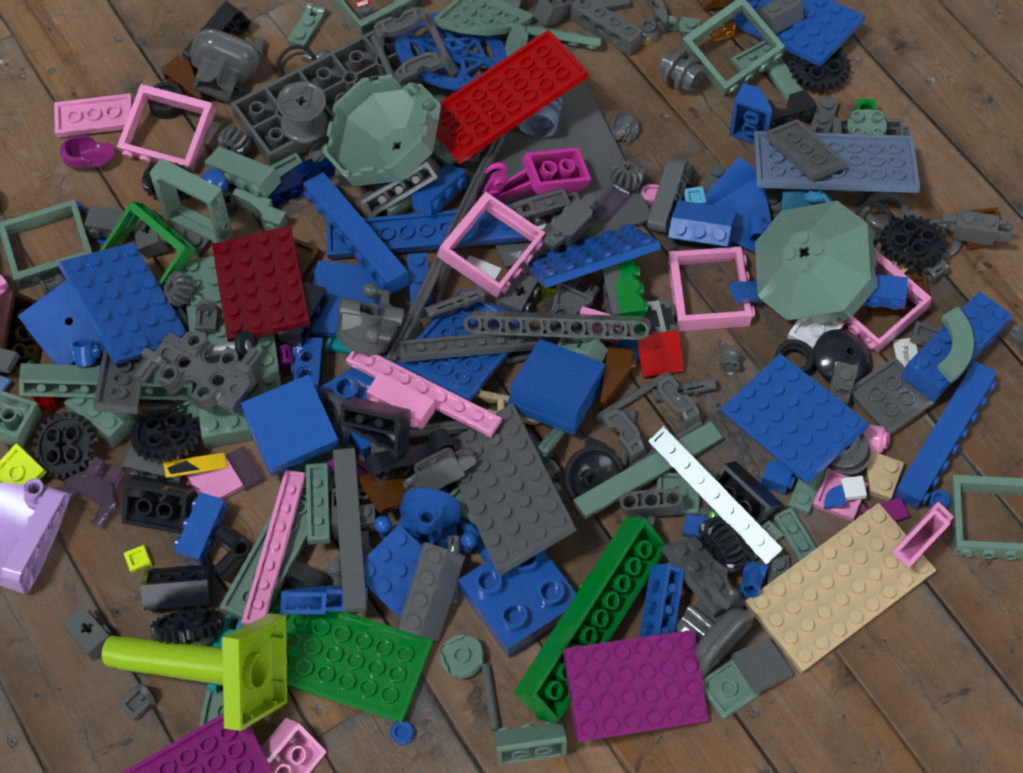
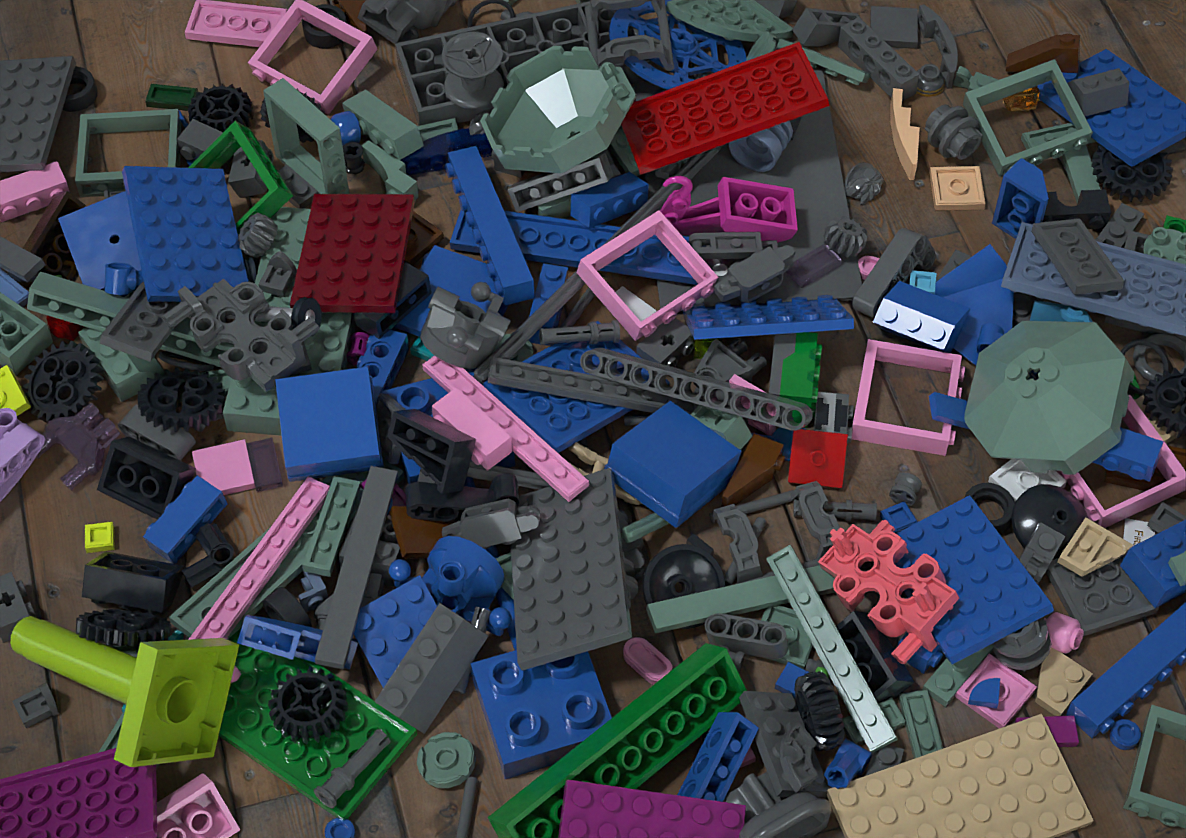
camera: 15 degrees right, 5 degrees down
(63, 189) = (170, 97): none -> dark green tile
(84, 152) = (210, 61): magenta hair -> none
(106, 187) = (220, 106): none -> black gear
(195, 465) = (205, 444): yellow sticker -> none
(234, 140) = (386, 87): dark grey gear -> none
(320, 556) = (314, 593): none -> sand blue bracket
(339, 659) = (313, 690): none -> black gear
(393, 691) = (343, 778): none -> dark grey pin
(585, 542) = (646, 659): none -> bright pink tile
(644, 82) = (904, 136): none -> light nougat slope
(695, 114) = (957, 188): none -> light nougat tile
(731, 383) = (898, 516): none -> blue tile
(771, 455) = (916, 614): none -> coral gear
(853, 488) = (1014, 687): white tile -> none
(878, 370) = (1092, 548): none -> tan wing
(922, 534) = (1086, 768): bright pink slope -> none

